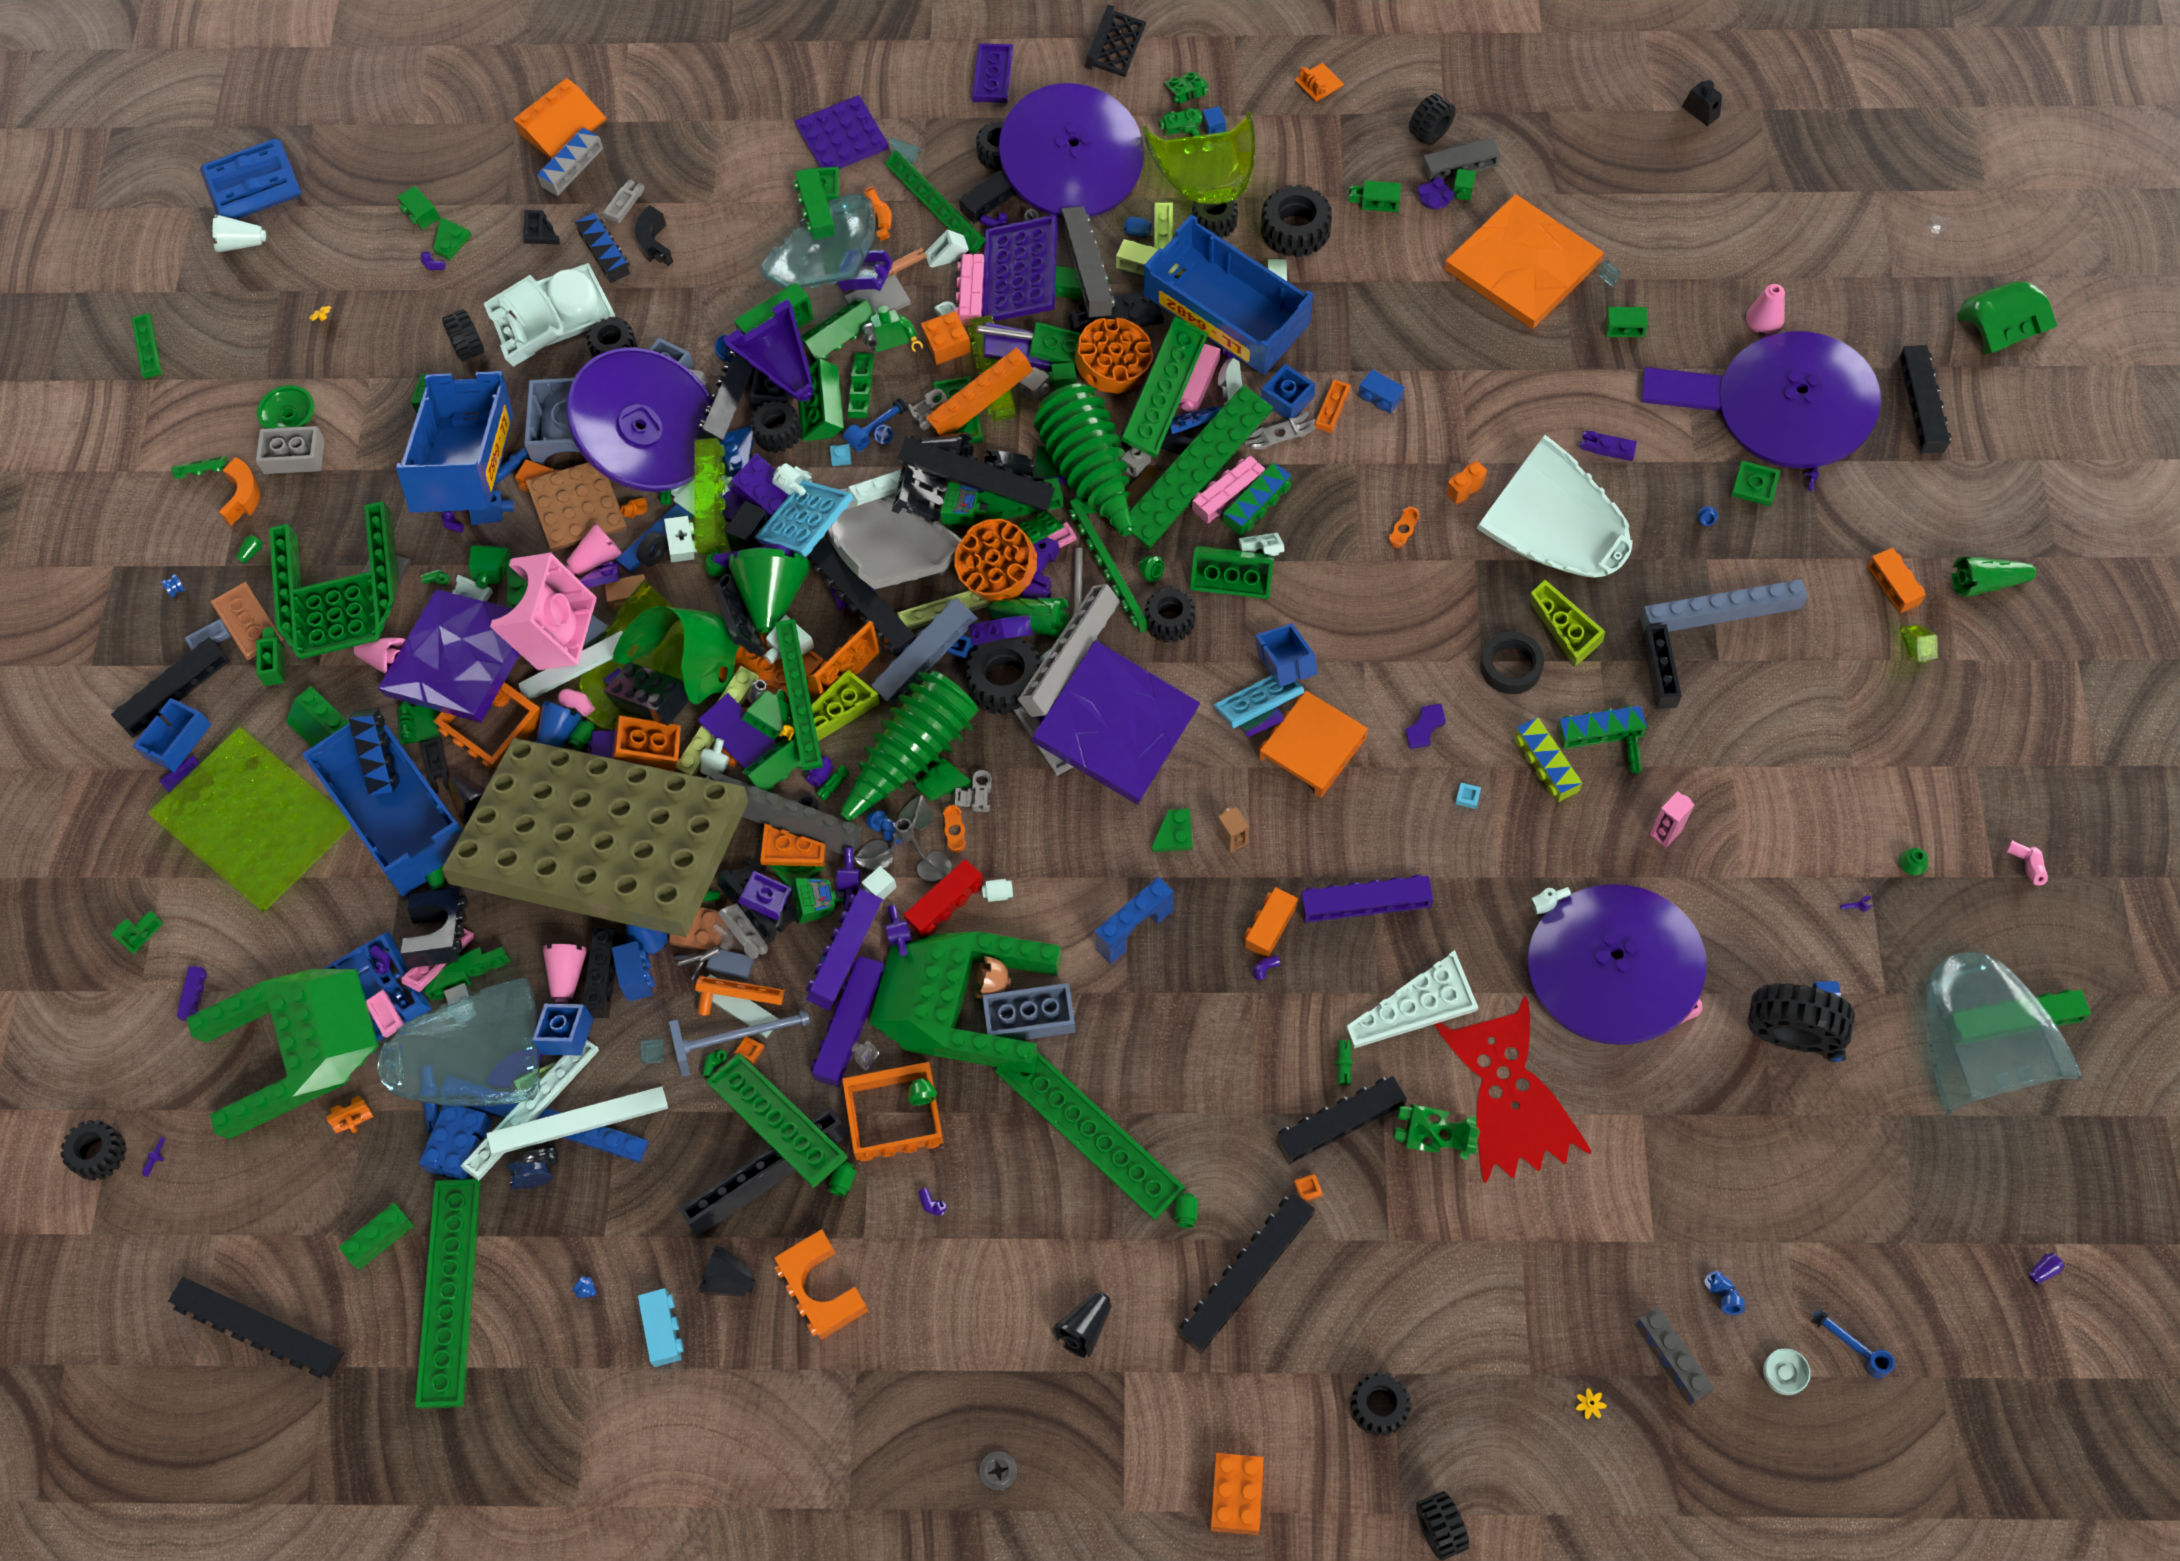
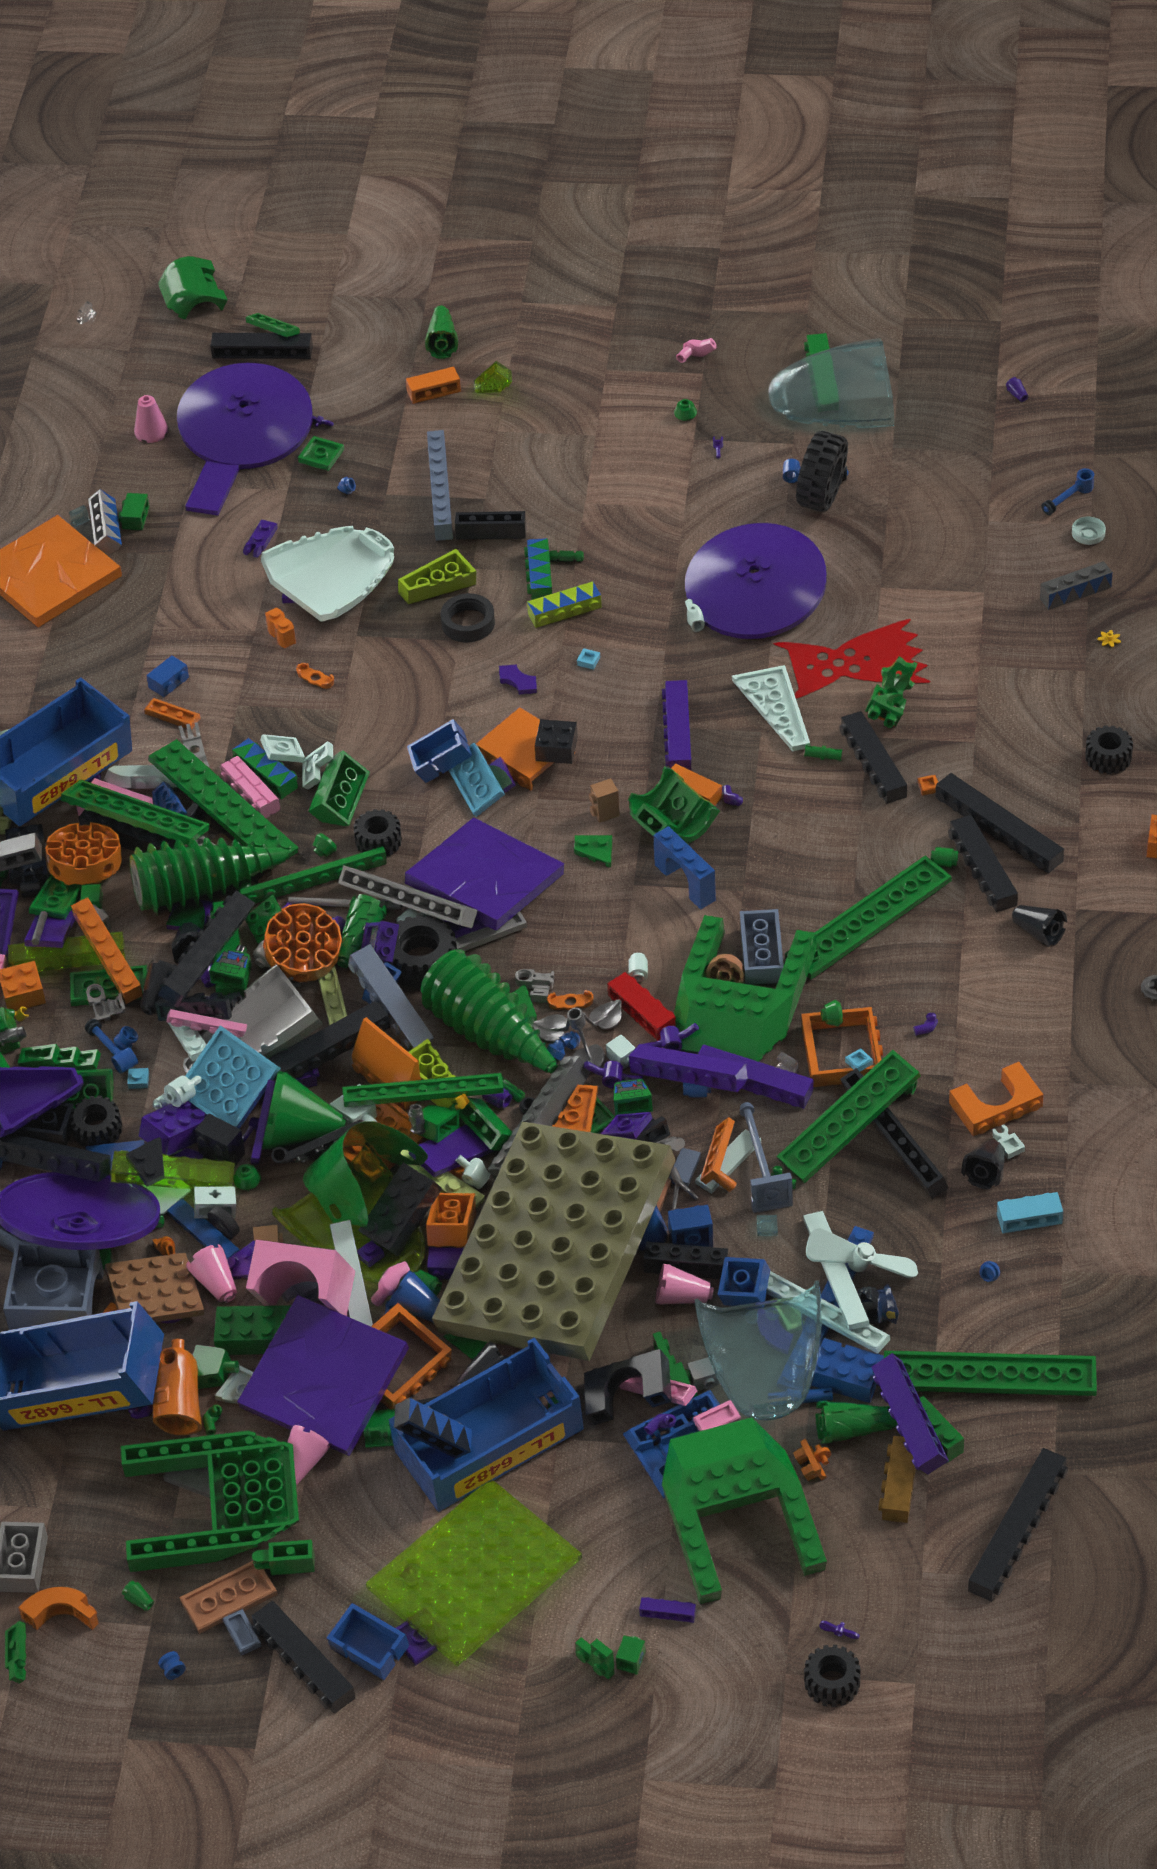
camera: 85 degrees left, 15 degrees down
(142, 963) = (630, 1654): none -> green brick
(314, 717) = (380, 1506): green slope -> none
(320, 1204) = (899, 1483): none -> pearl gold brick
(373, 1203) = (909, 1413): none -> dark purple brick
(386, 1142) = (848, 1420): none -> green cone
(441, 536) = (176, 1392): none -> orange torso
(590, 1183) = (828, 1247): none -> light aqua piece
(705, 468) = (148, 1161): none -> black wing
(749, 1049) = (770, 1151): orange tile -> none
(757, 1302) = (1011, 1142): none -> light aqua plate
(860, 1126) = (859, 1060): none -> medium azure tile
(889, 485) = (200, 1022): none -> bright pink plate
(1179, 1256) = (983, 863): none -> black brick
(1221, 899) = (673, 805): none -> green piece
(1283, 509) = (282, 748): none -> light aqua tile
(1288, 392) = (154, 733): blue brick -> none
(1308, 767) = (556, 741): none -> black brick
(1600, 296) = (105, 522): none -> light grey brick
(1672, 819) = (638, 528): bright pink brick -> none
(1731, 1302) = (1021, 556): blue arm -> none
(1957, 402) = (273, 325): none -> green tile

